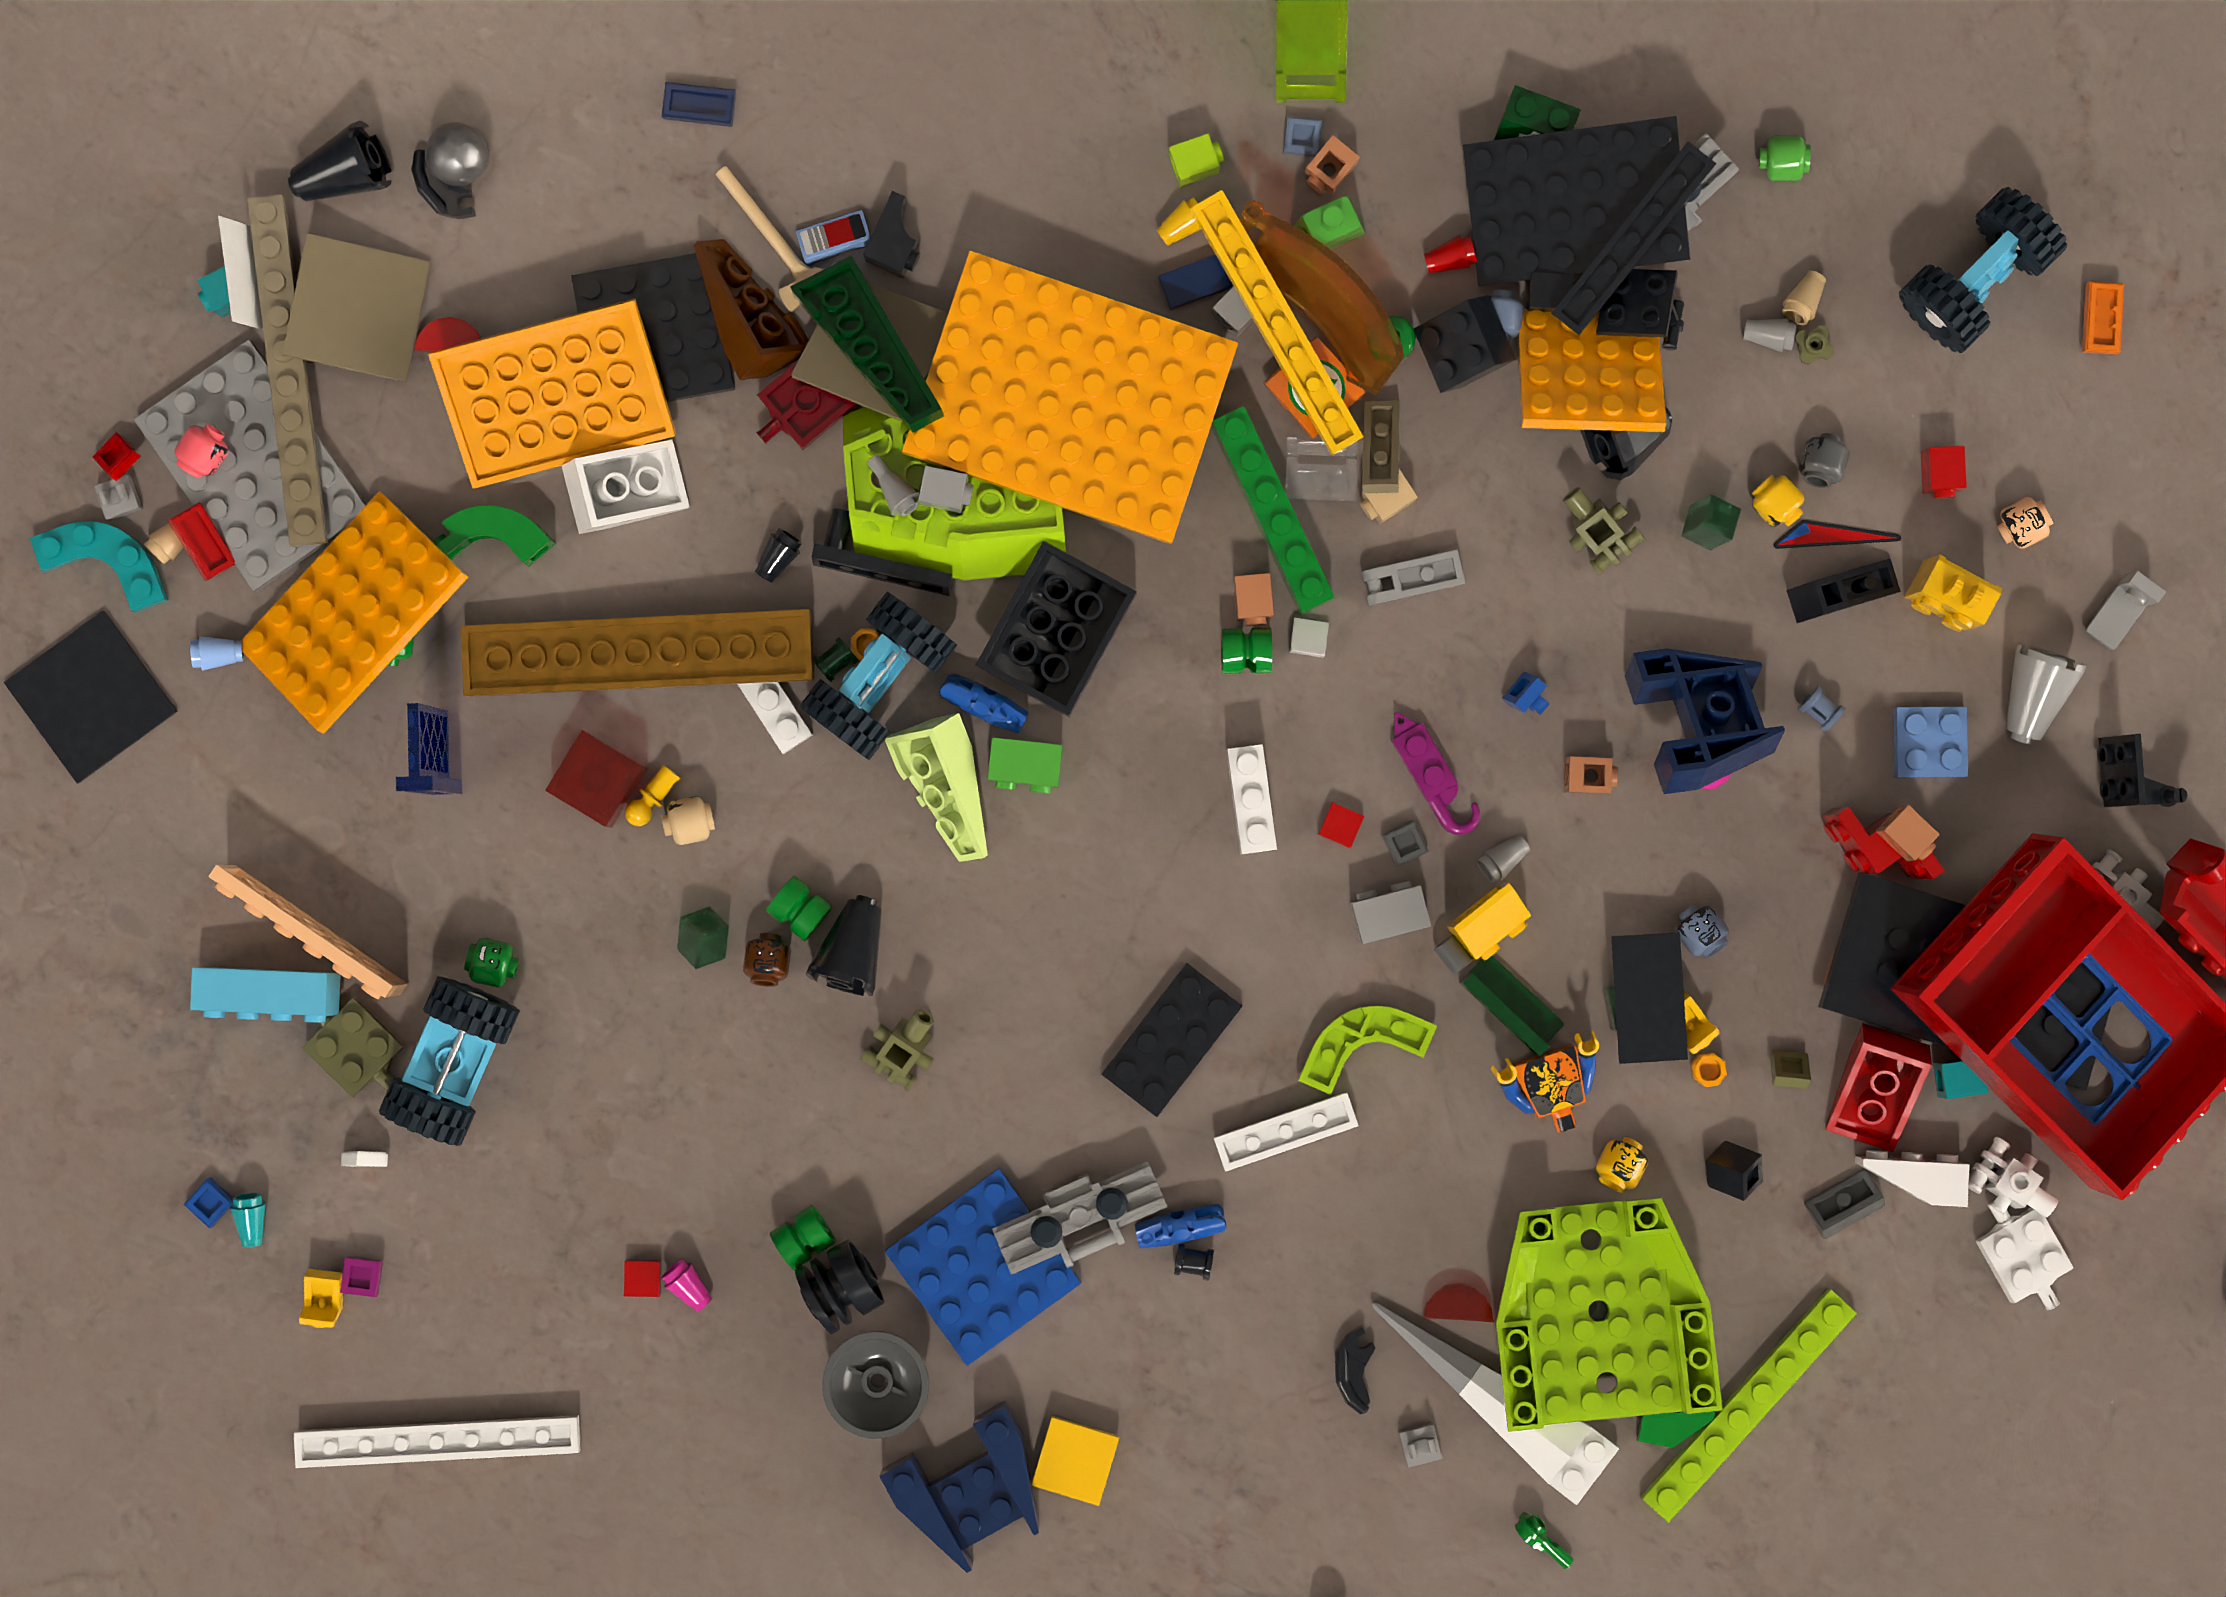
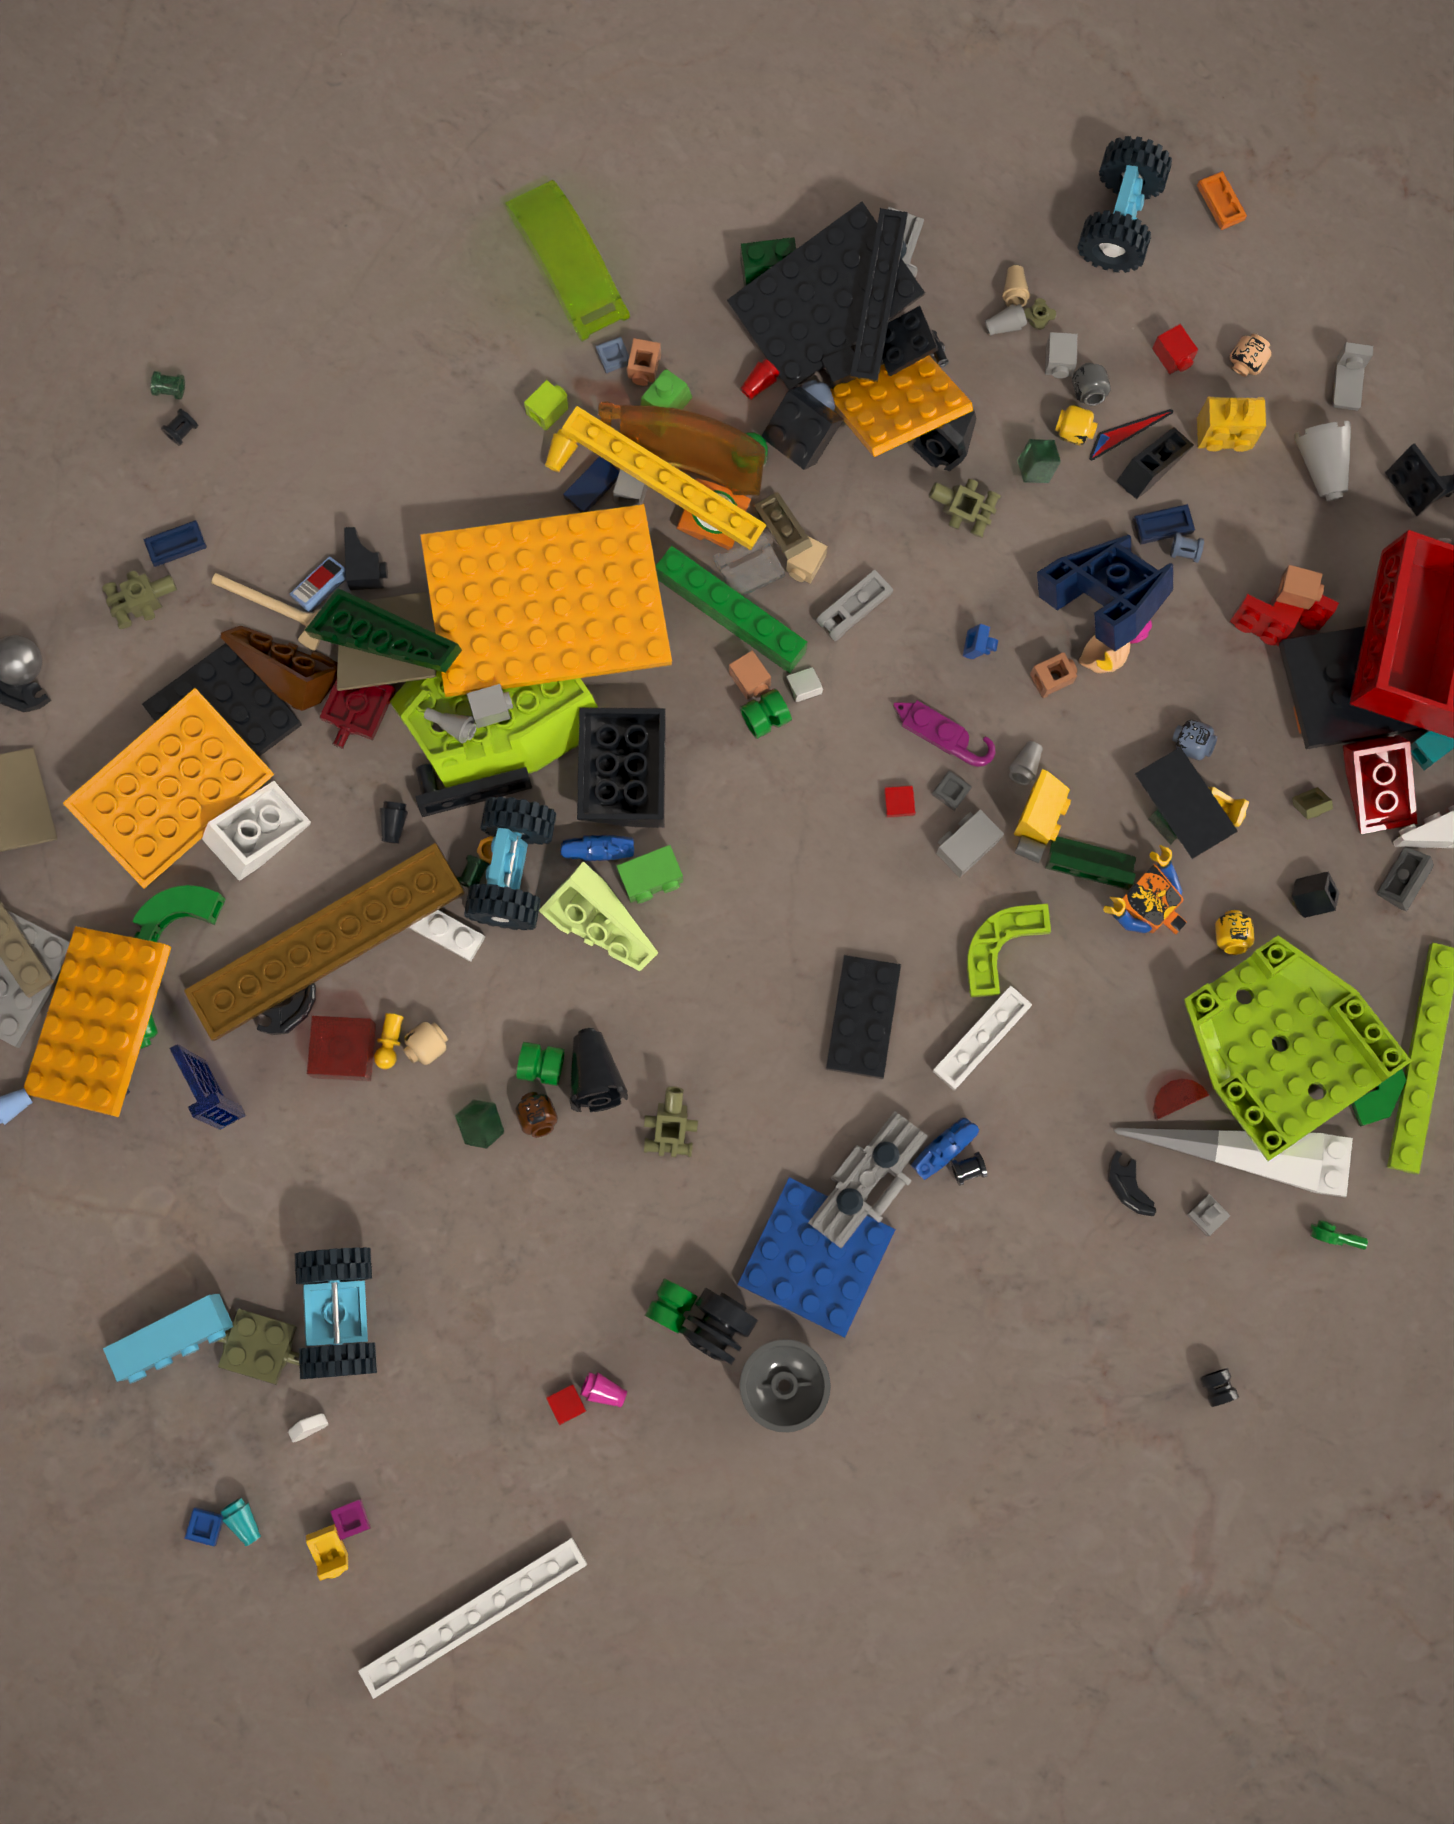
camera: 25 degrees left, 10 degrees down
(317, 938) = (169, 1274): light nougat plate -> none
(445, 333) = (64, 790): red tile -> none
(491, 962) = (330, 1225): green head -> none
(560, 712) = (291, 1015): none -> black piece
(629, 148) = (137, 596): none -> olive piece
(972, 1497) = (905, 1432): dark blue wedge -> none
(1075, 1460) = (964, 1365): yellow tile -> none
(1251, 799) = (826, 814): white brick -> none
(1646, 785) = (1101, 658): none -> light nougat hair
(1708, 1069) = (1255, 834): light orange tile -> none
(1785, 158) = (950, 204): bright green head -> none
(1809, 408) = (1061, 354): none -> light grey brick
(1812, 666) = (1163, 524): none -> dark blue tile
(1930, 742) = (1274, 533): medium blue plate -> none

